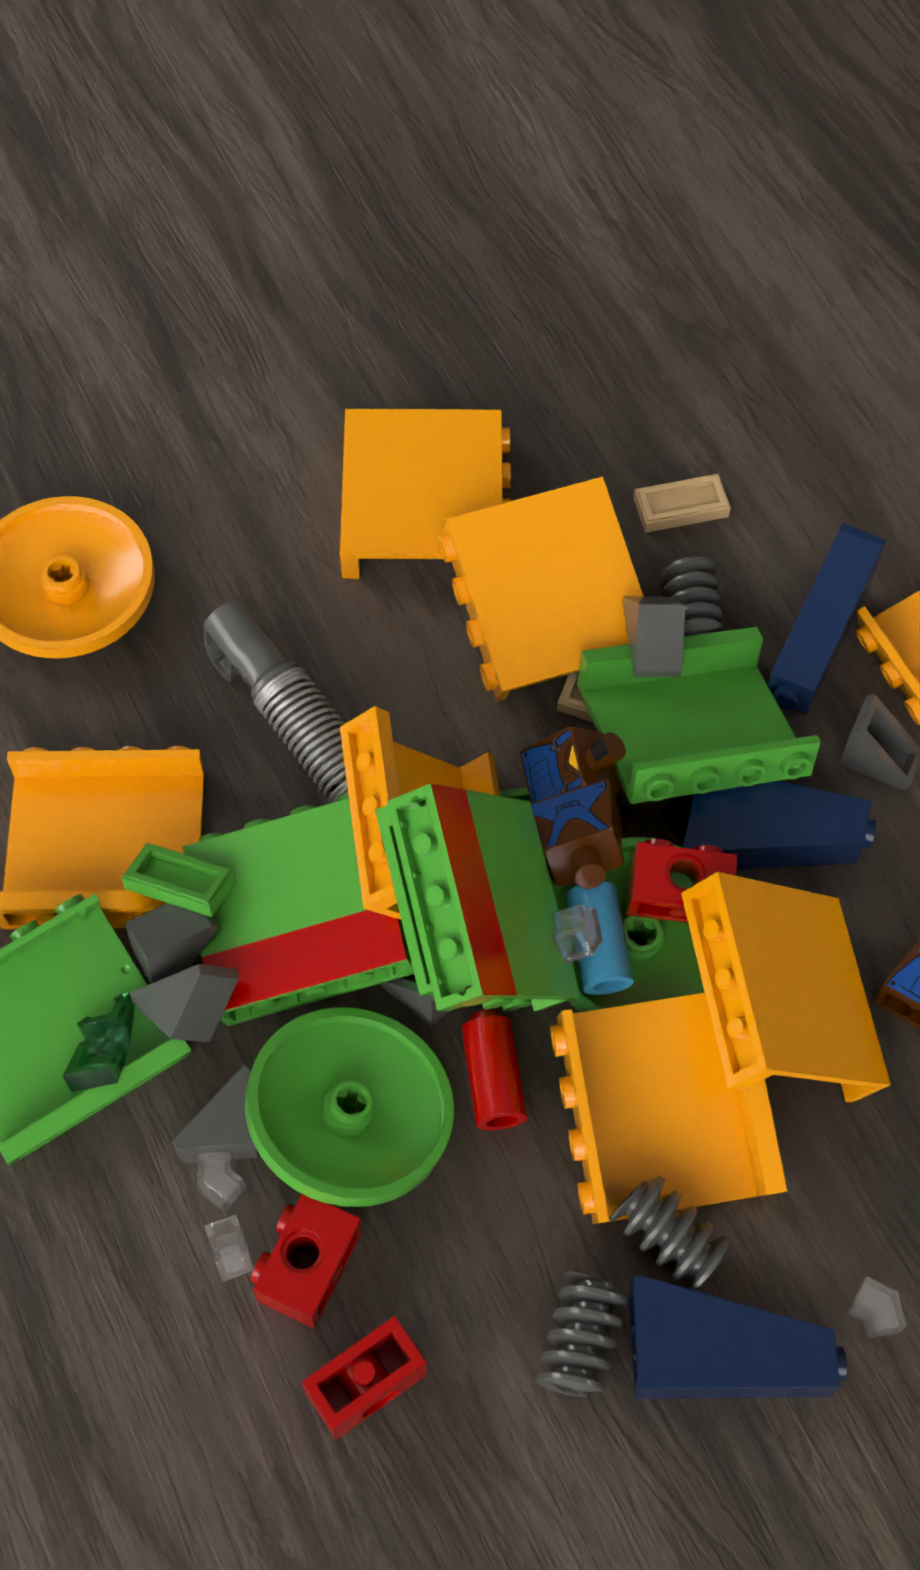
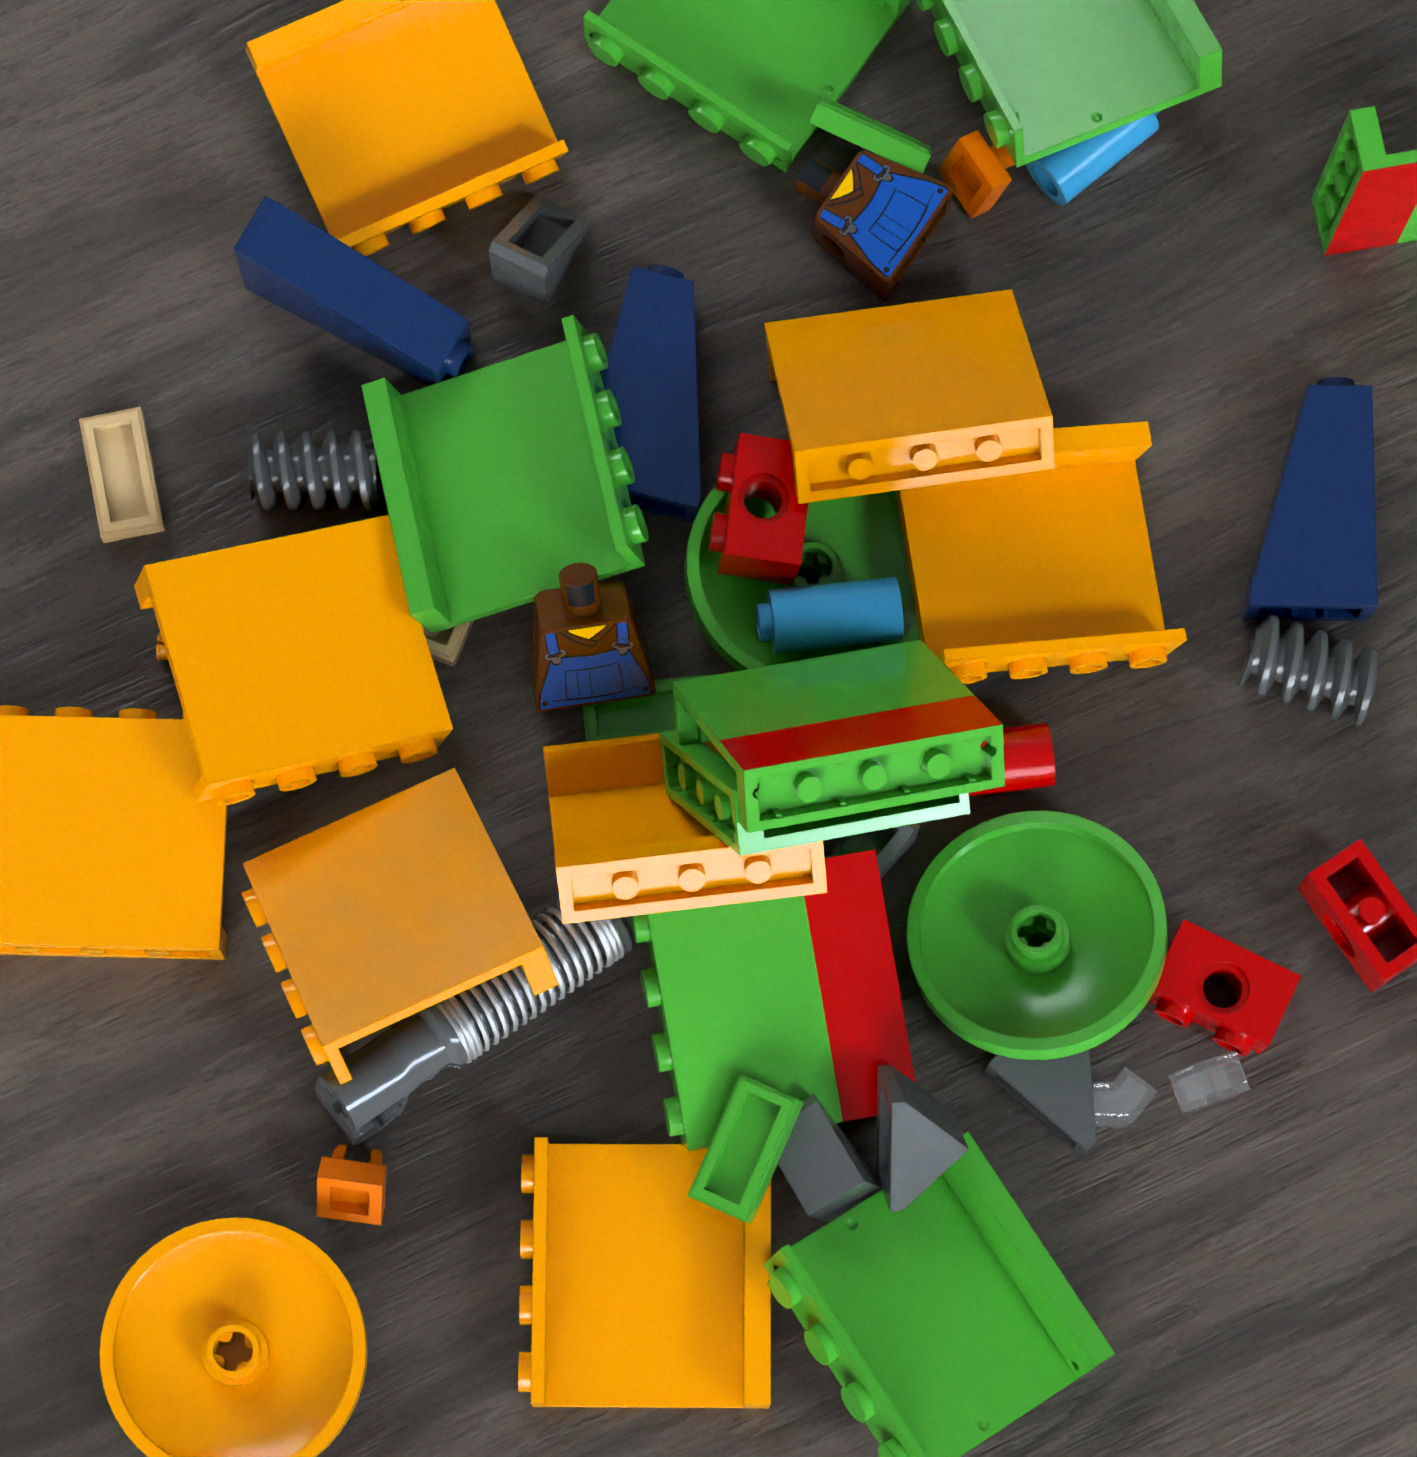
camera: 90 degrees left, 15 degrees up
(104, 1051) = (965, 1245): clear green slope -> none
(173, 648) = (351, 1188): none -> orange tile
(358, 646) = (390, 915): none -> light orange panel
(577, 932) = (850, 634): clear piece -> none
(580, 834) = (698, 629): reddish brown torso -> none
(655, 635) = (388, 514): dark grey slope -> none
(672, 1231) = (1190, 558): dark grey piece -> none
(878, 1309) = (1270, 337): clear piece -> none

